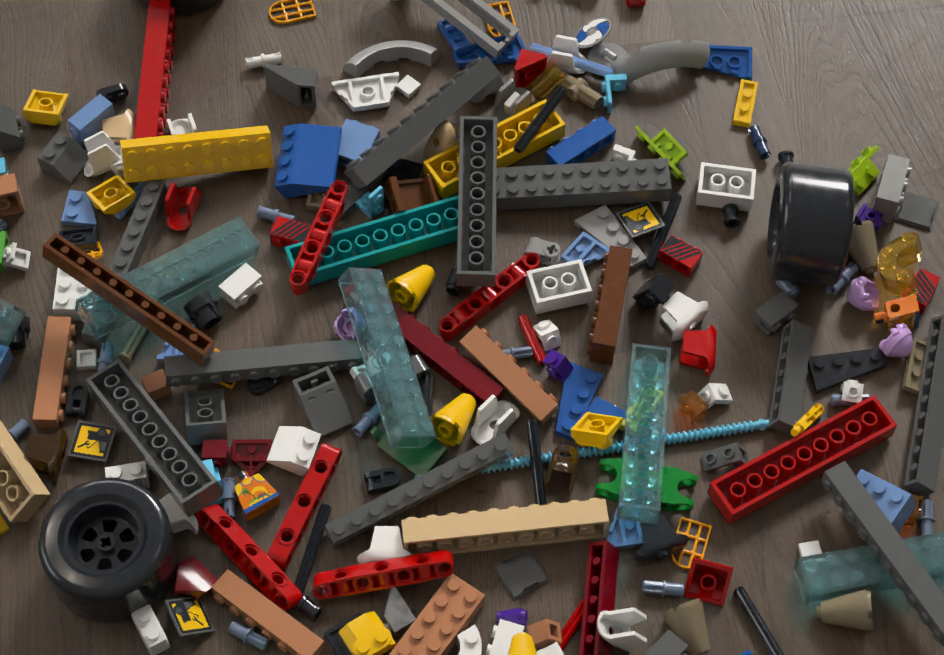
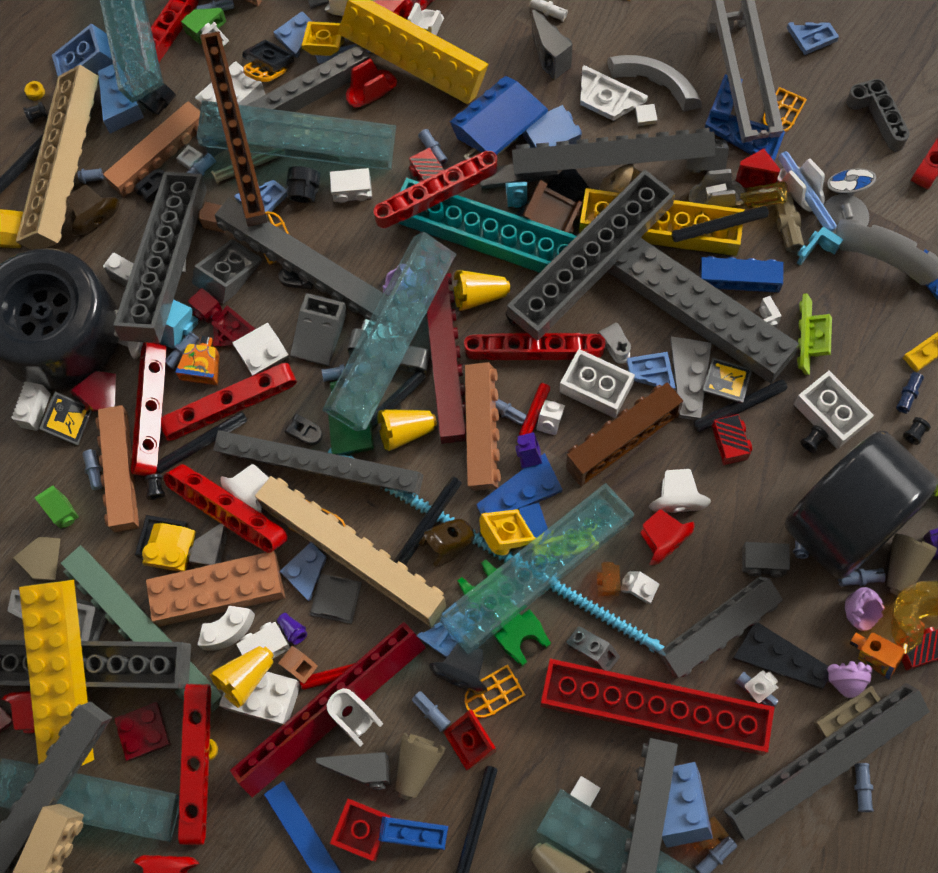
camera: 50 degrees right, 10 degrees up
(92, 441) = (128, 225): piece -> none
(481, 572) = (305, 570): none -> medium blue wing
(493, 410) = (419, 456): white piece -> none
(654, 292) = (670, 453): black brick -> none
(807, 419) = (694, 676): yellow piece -> none

